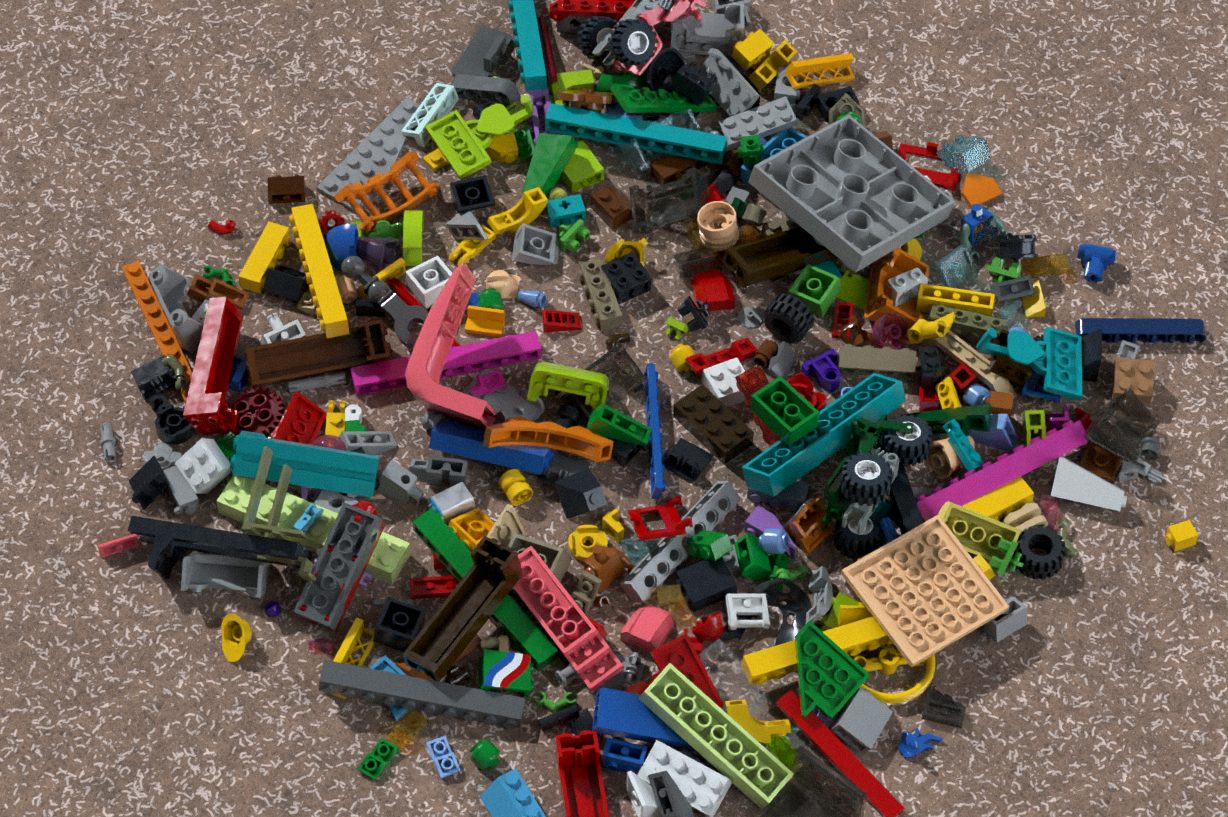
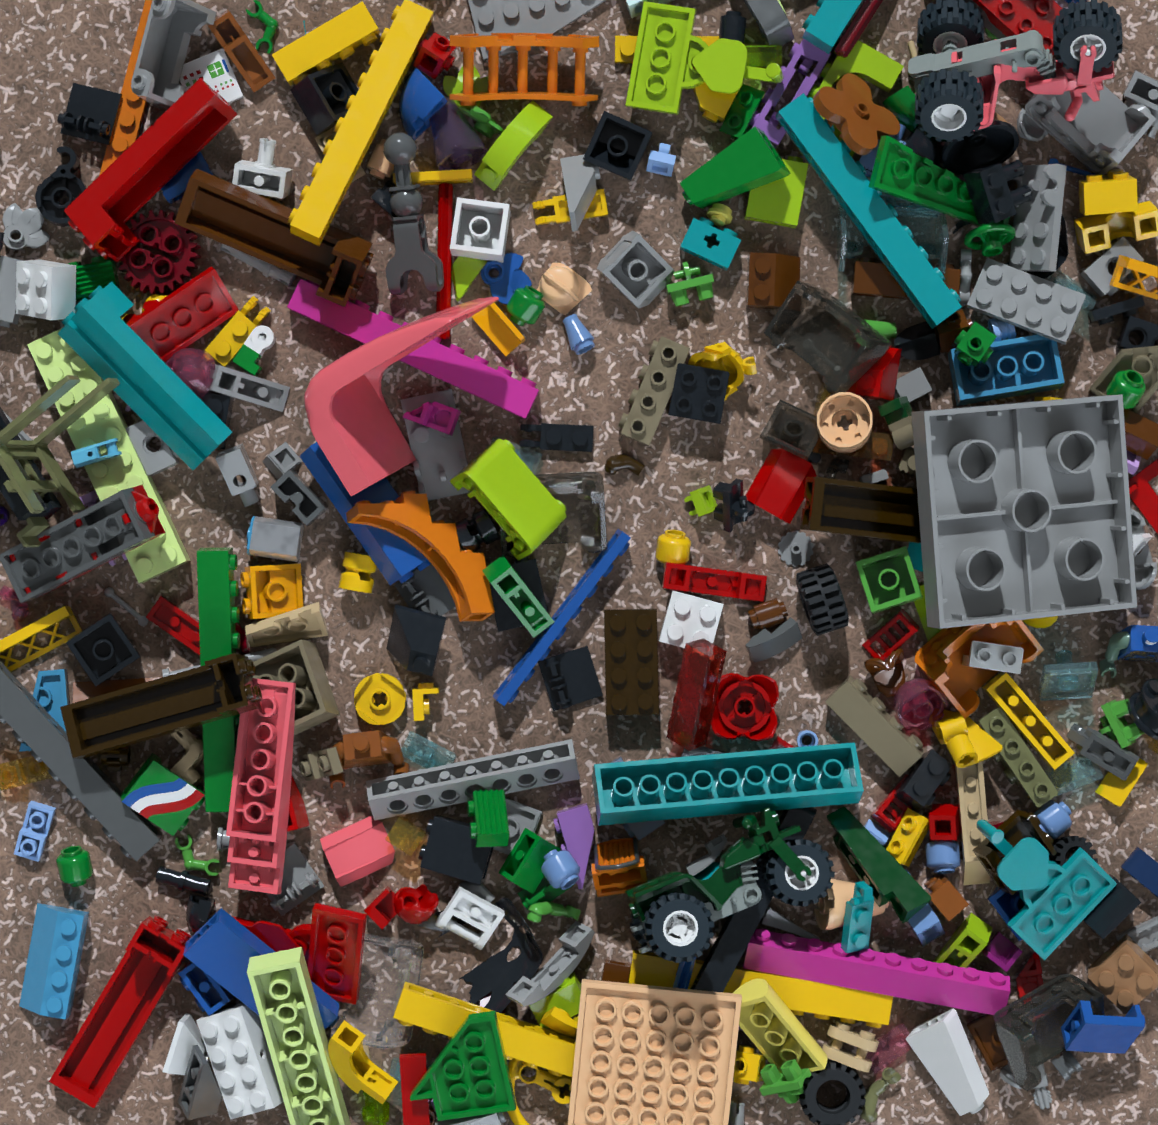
camera: 40 degrees right, 35 degrees up
(171, 360) = (117, 131): olive arm -> none
(502, 193) = (661, 161): none -> light blue tile
(523, 212) = (650, 209): yellow arch -> none
(556, 326) = (590, 382): red slope -> none
(569, 351) = (560, 437): none -> black hinge
(669, 516) = (480, 749): red piece -> none
(714, 111) = (990, 242): none -> green piece
(784, 410) = (692, 741): green brick -> none
(823, 369) = (810, 684): dark purple pin -> none
(1146, 406) = (1101, 1033): none -> blue panel

